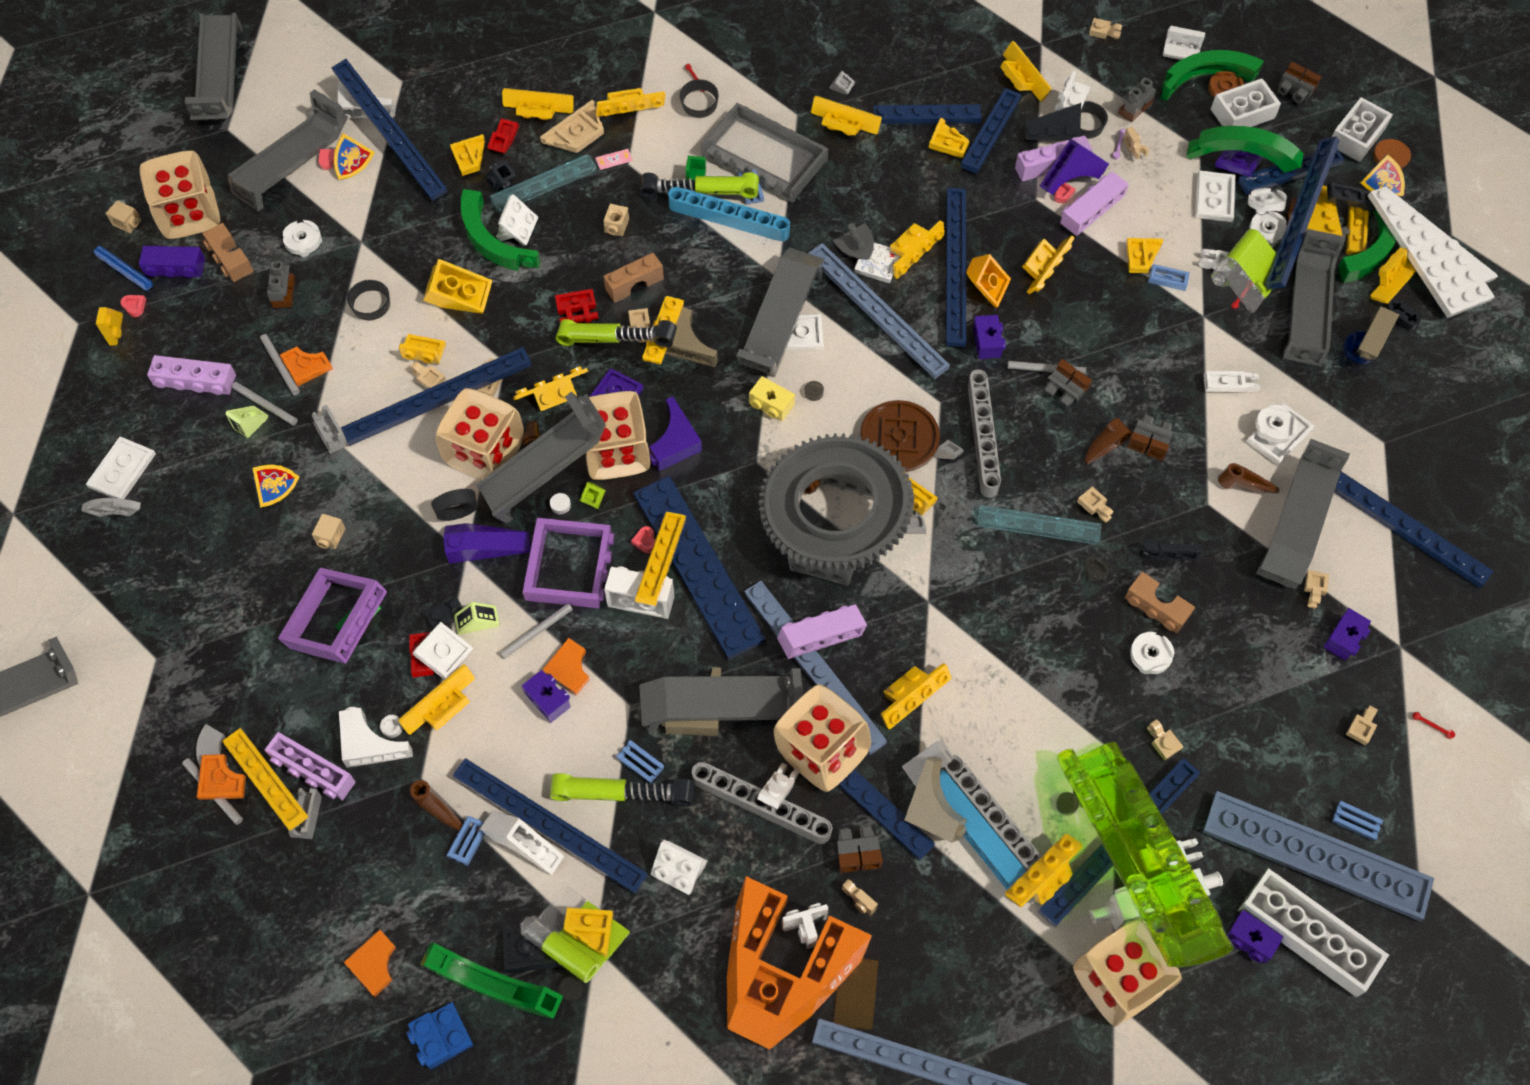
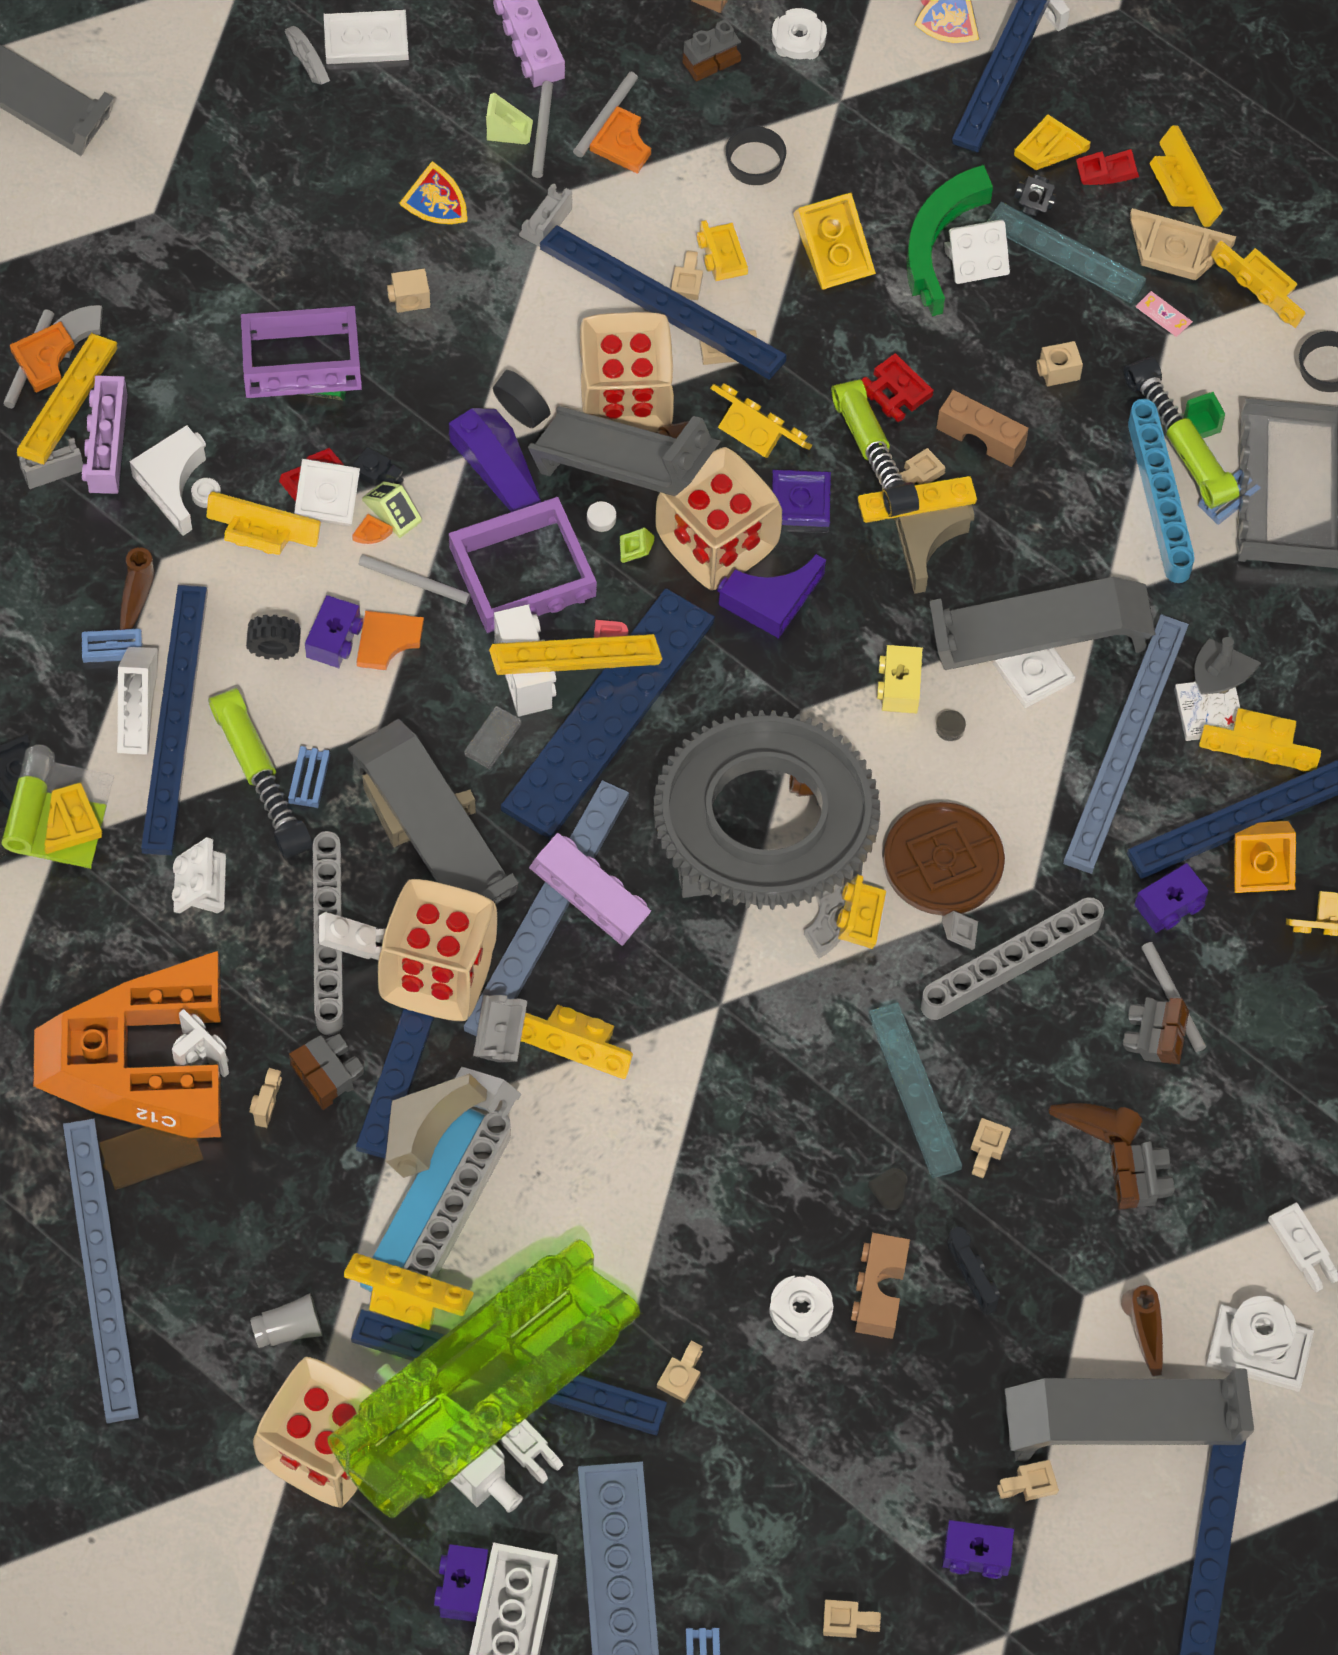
camera: 60 degrees right, 0 degrees up
(485, 639) = (372, 531): none -> orange tile
(531, 733) = (273, 637): none -> black tyre
(676, 639) = (493, 737): none -> clear tile
(889, 730) = (500, 1028): none -> light grey hinge
(1027, 961) = (287, 1323): none -> light grey plant

